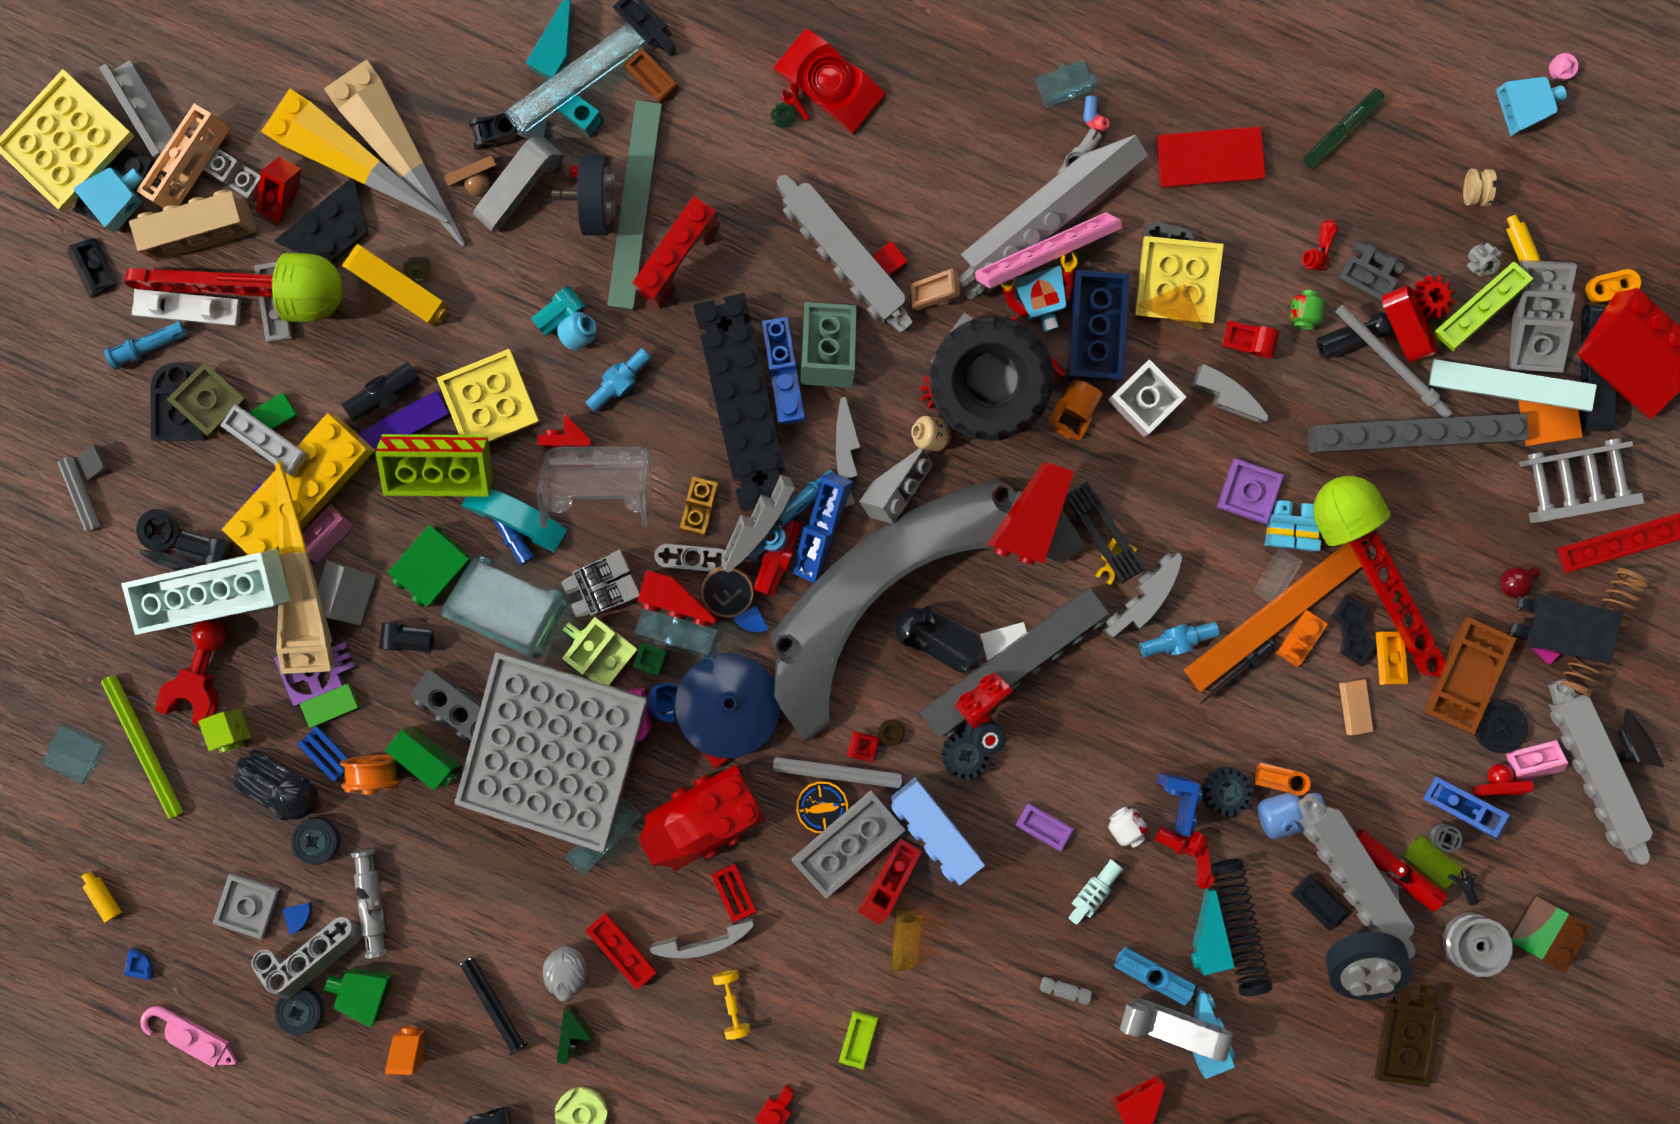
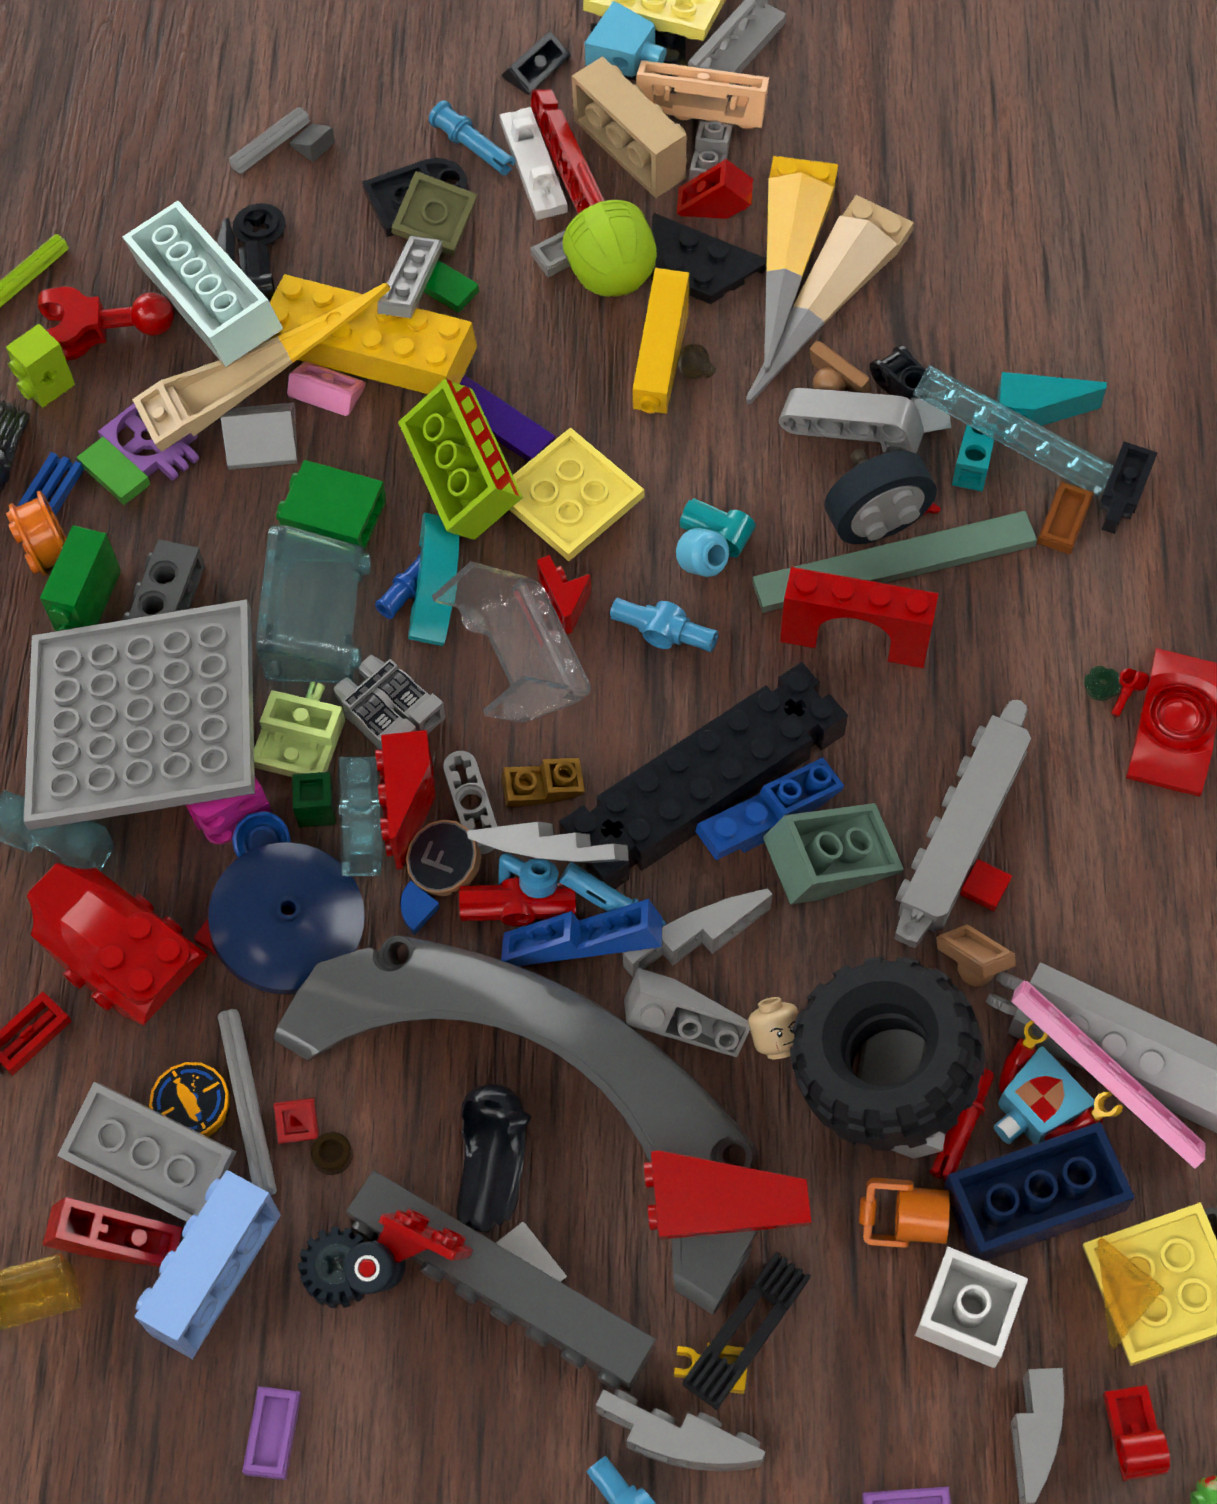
camera: 65 degrees right, 25 degrees down
(381, 392) = (525, 377): black piece -> none
(399, 638) = (228, 511): black piece -> none

